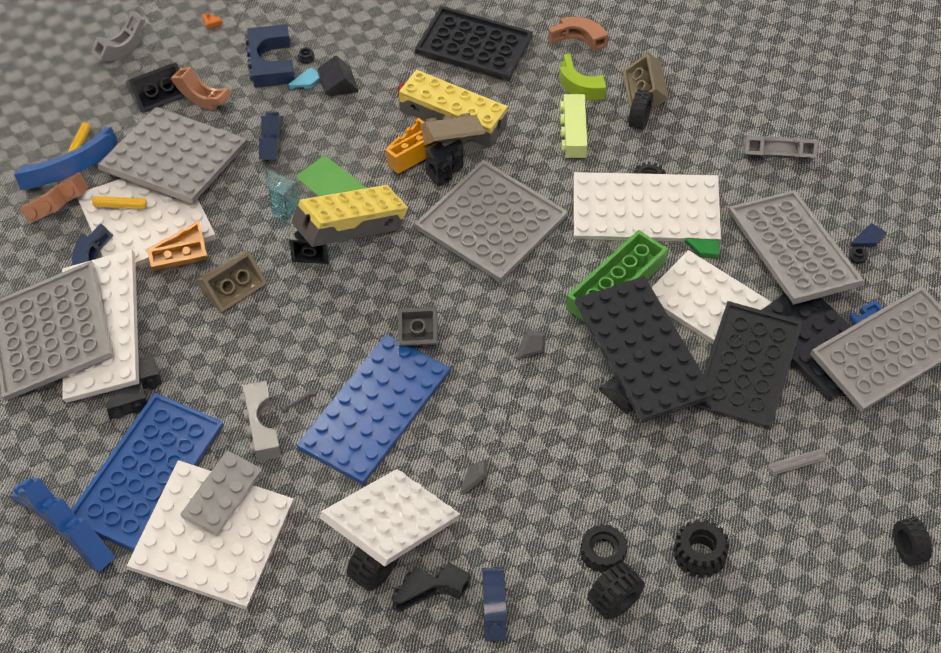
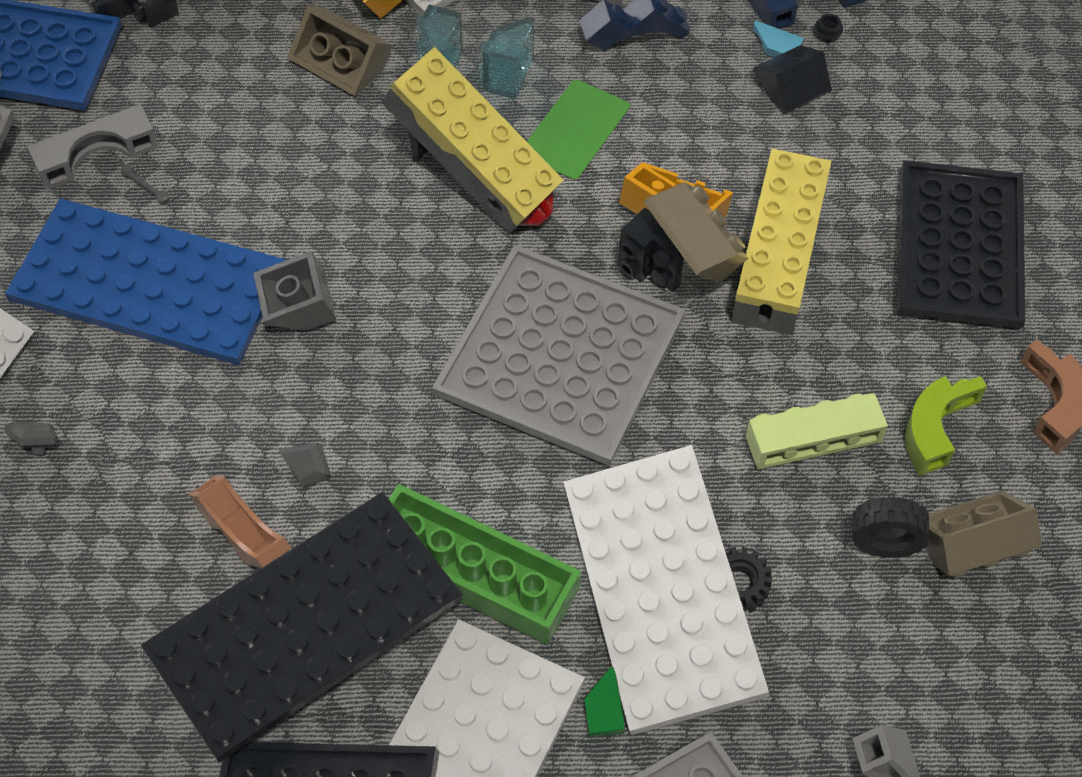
camera: 75 degrees right, 5 degrees up
(256, 226) = (441, 30): none -> clear light blue slope
(576, 374) = (242, 528): none -> nougat arch

